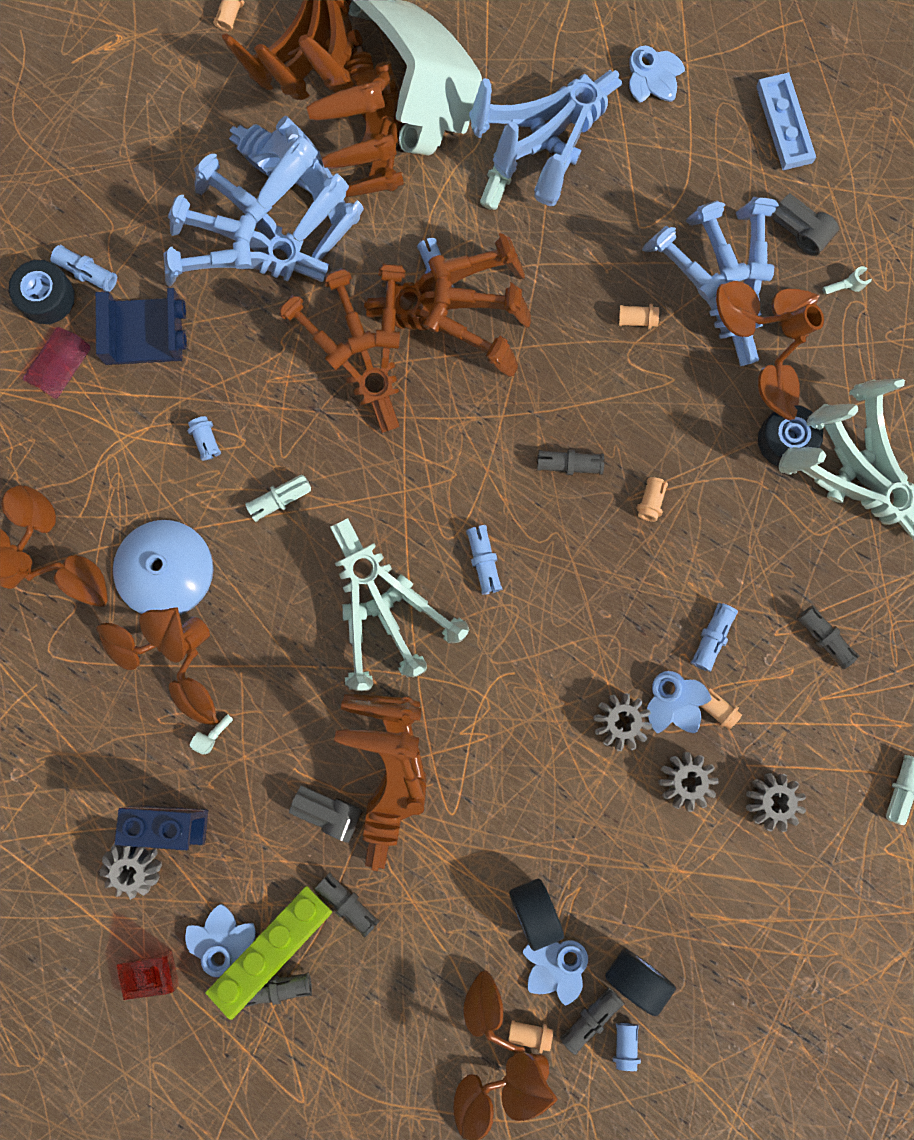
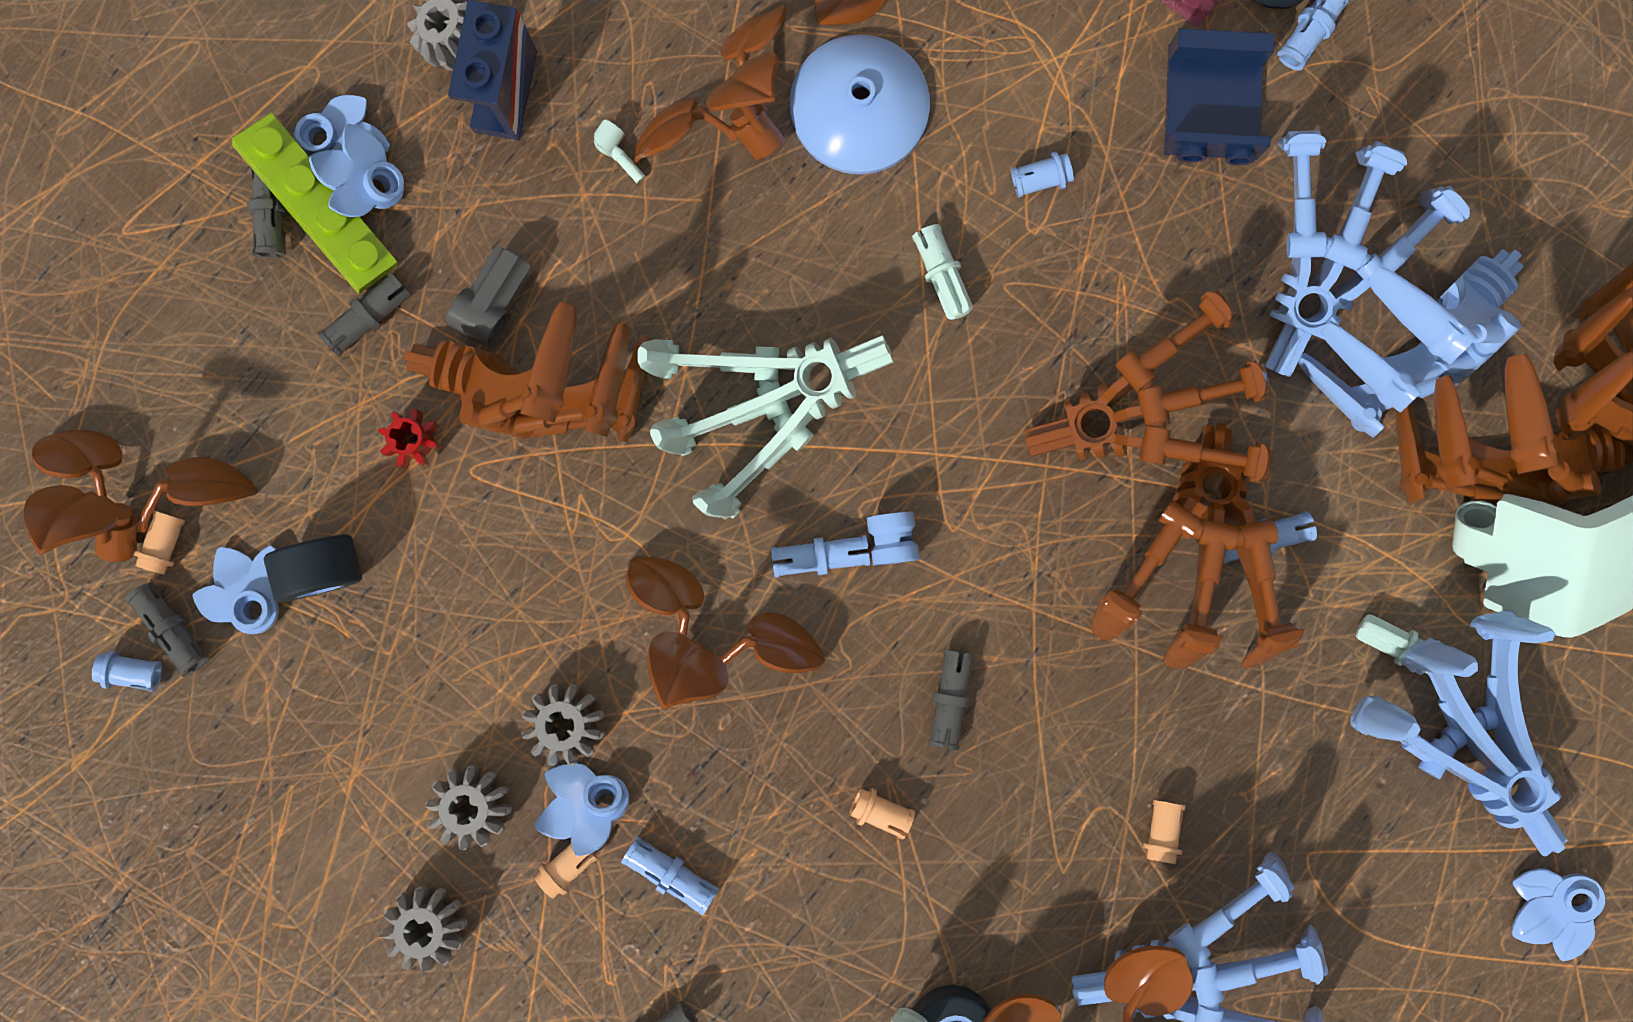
camera: 95 degrees right, 5 degrees up
(148, 976) = (303, 44): clear red slope -> none
(245, 925) = (352, 171): none -> light blue plate
(442, 853) = (409, 451): none -> red gear
(466, 511) = (893, 538): none -> light blue wheel
(576, 633) = (685, 670): none -> dark orange plant
(640, 982) = (203, 699): black wheel -> none

